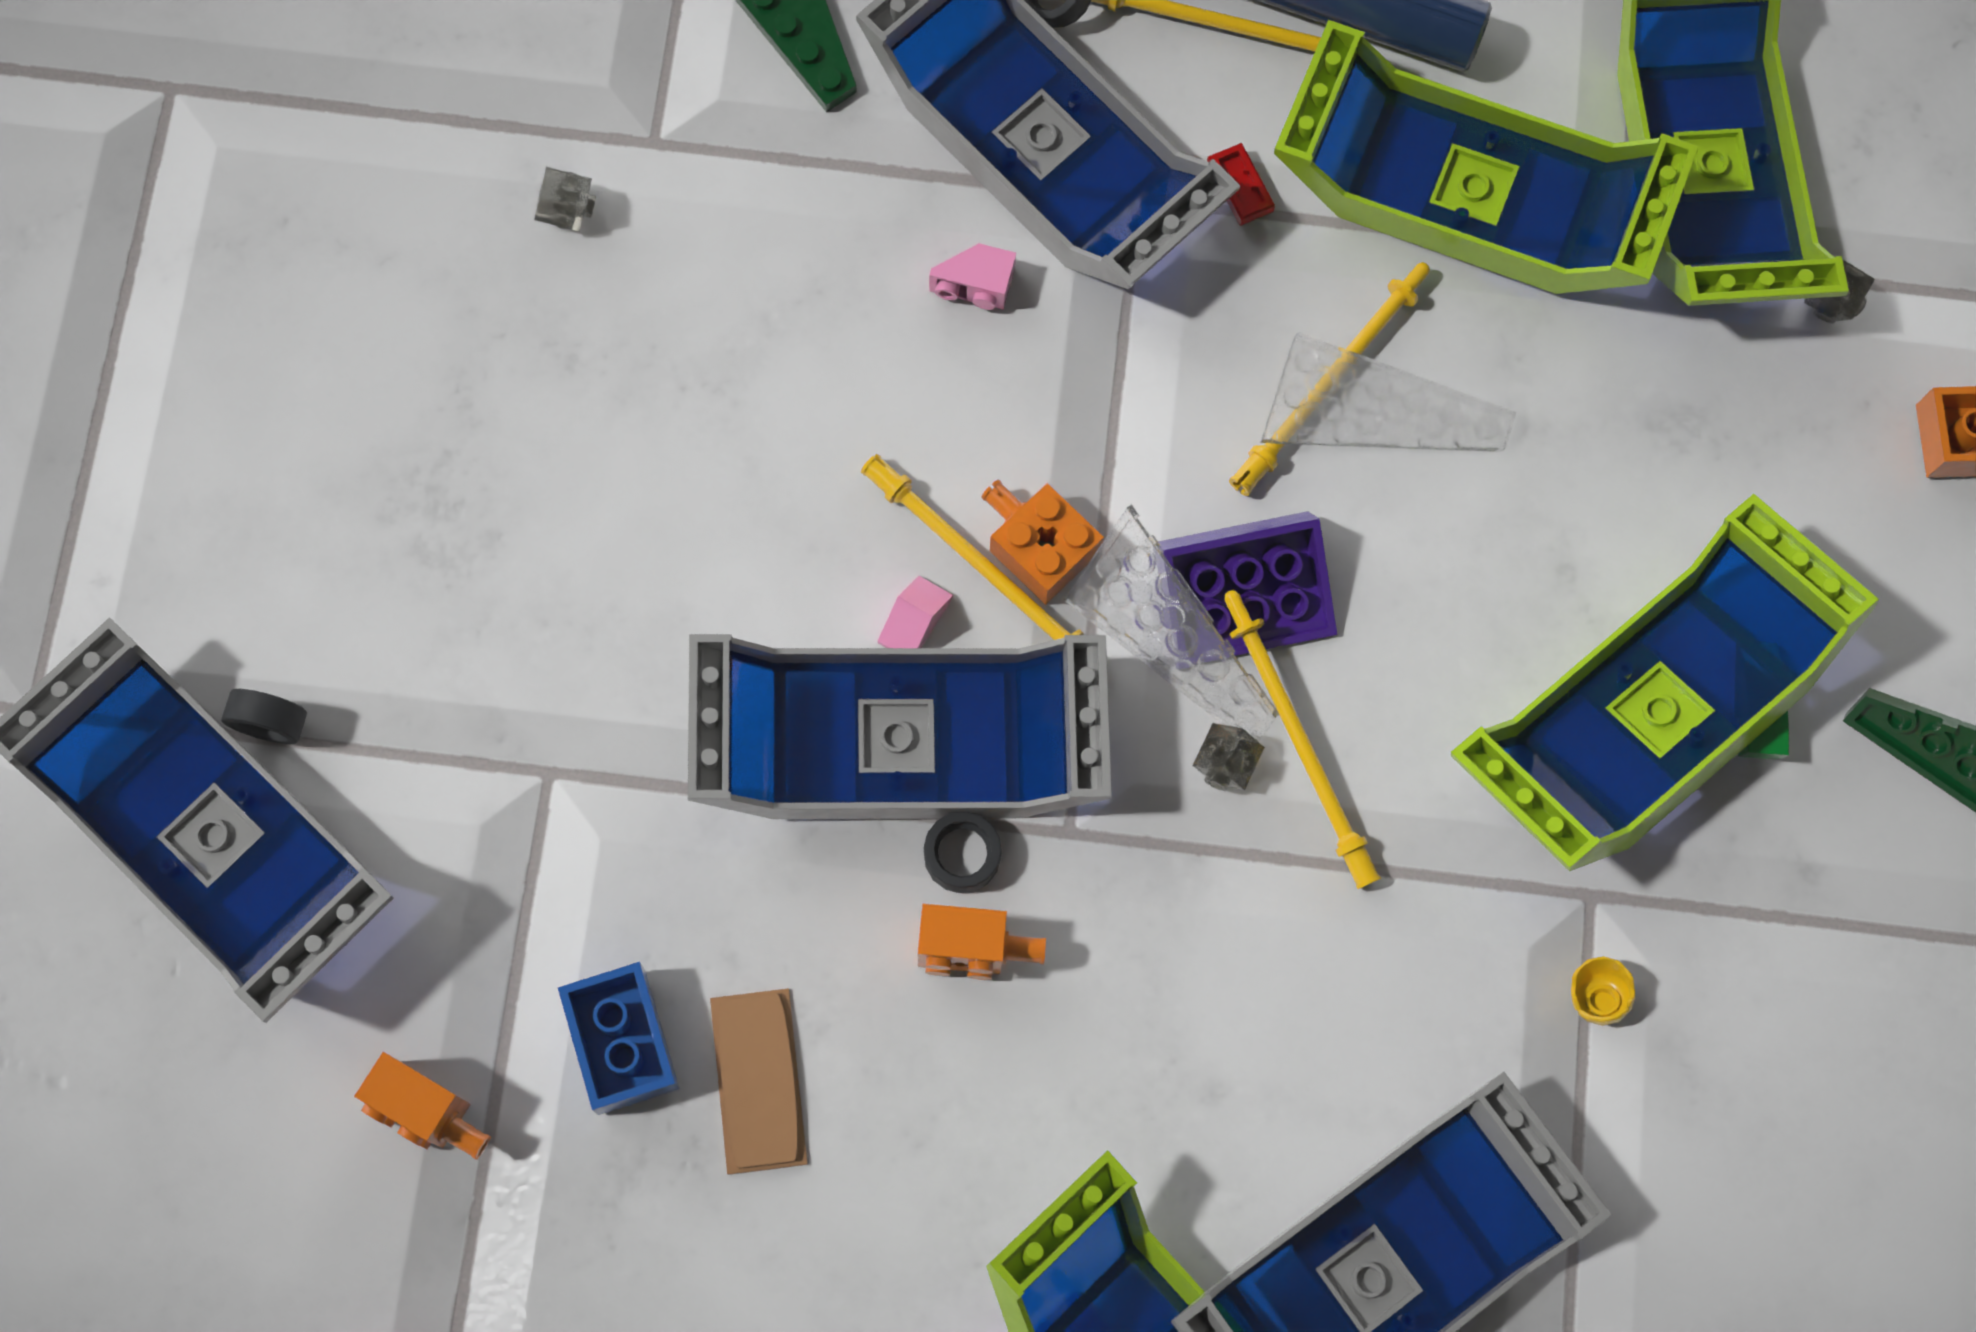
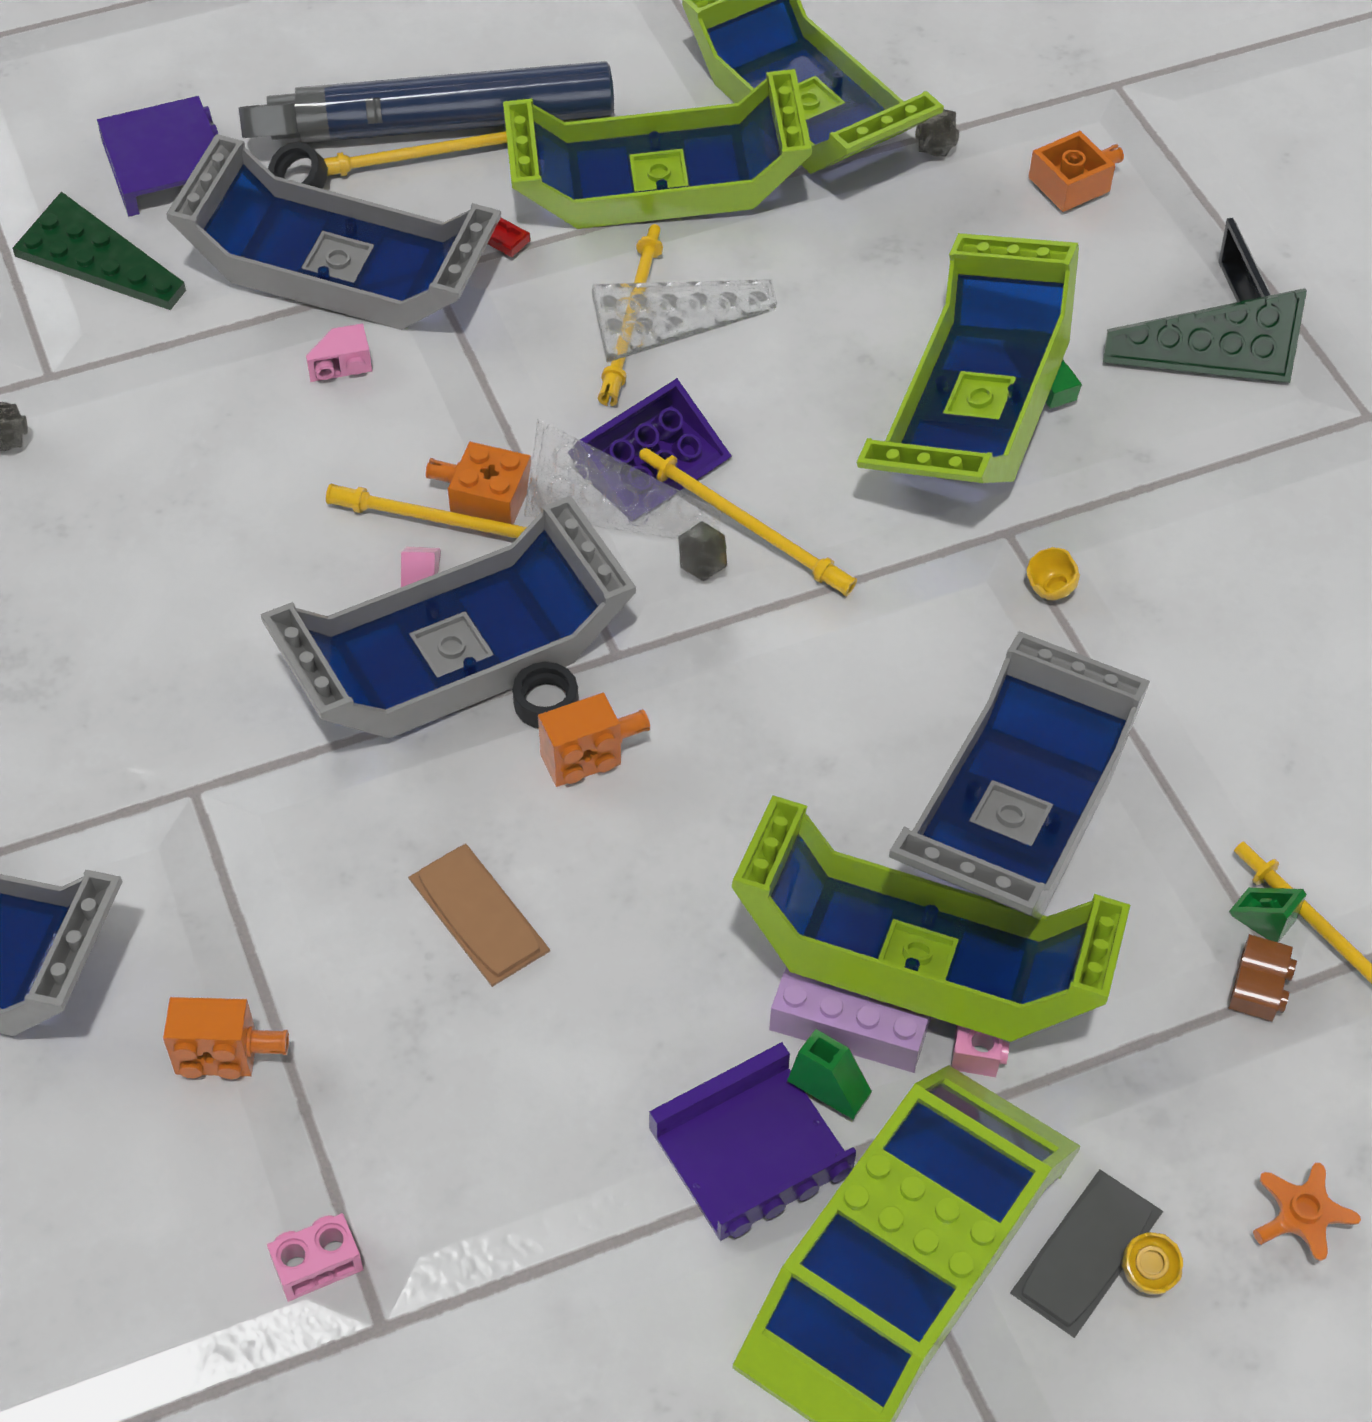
camera: 25 degrees left, 20 degrees down
(618, 1038) = (353, 923): blue brick -> none

